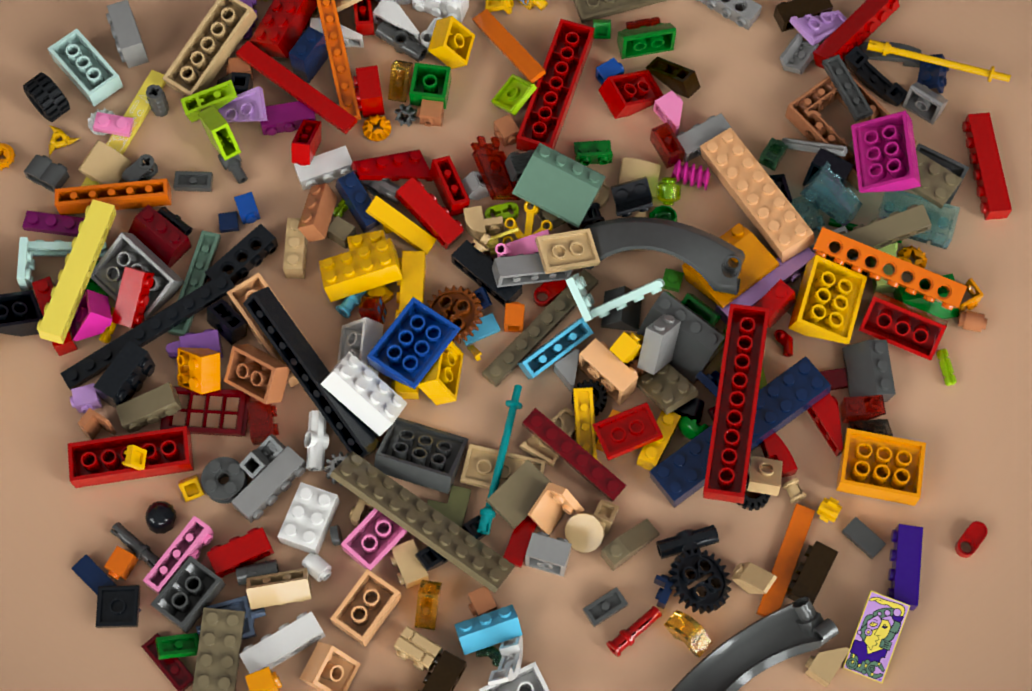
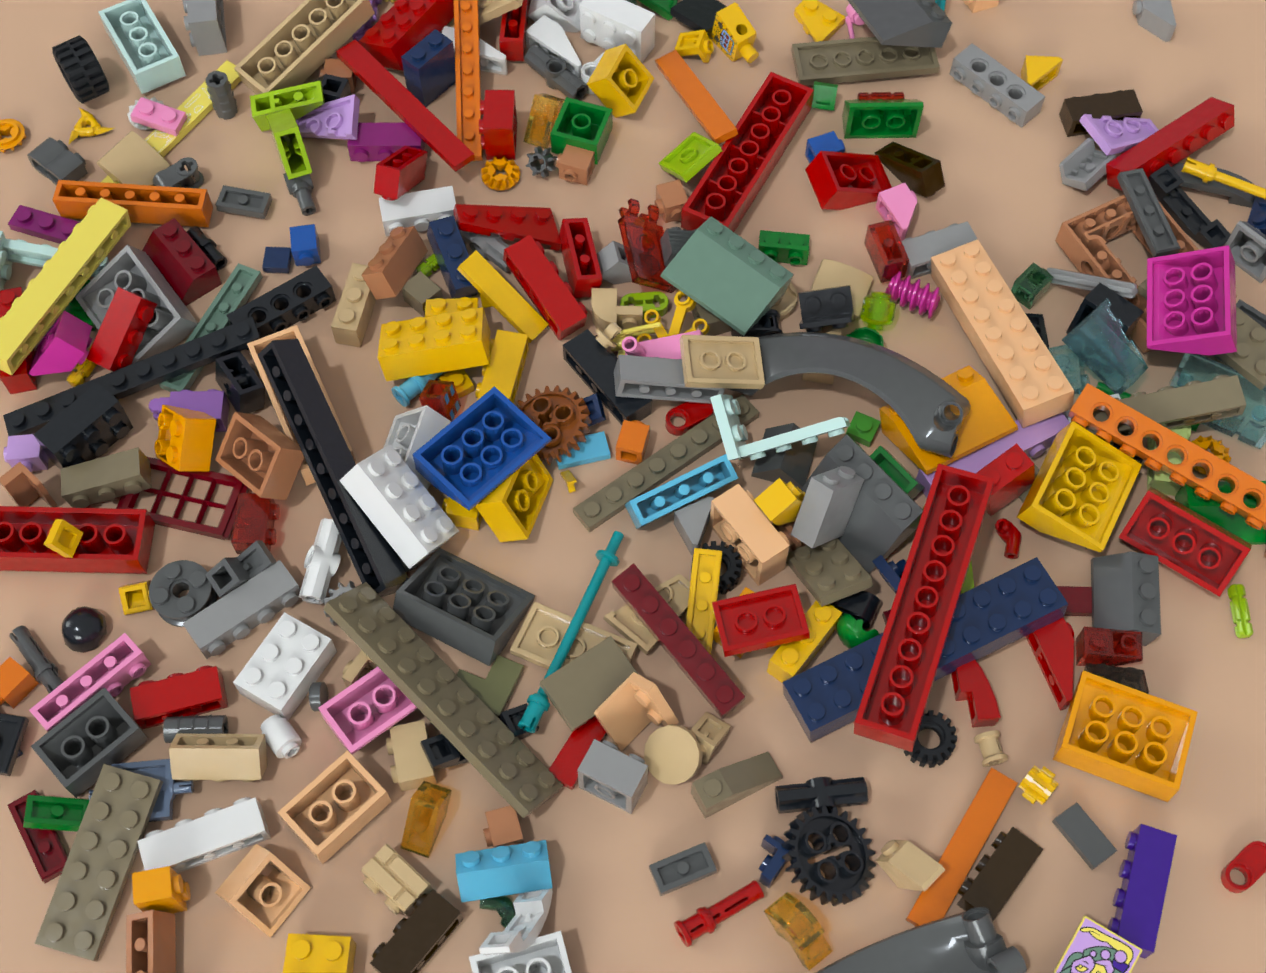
camera: 10 degrees right, 5 degrees down
(765, 476) = (950, 719): tan piece -> none

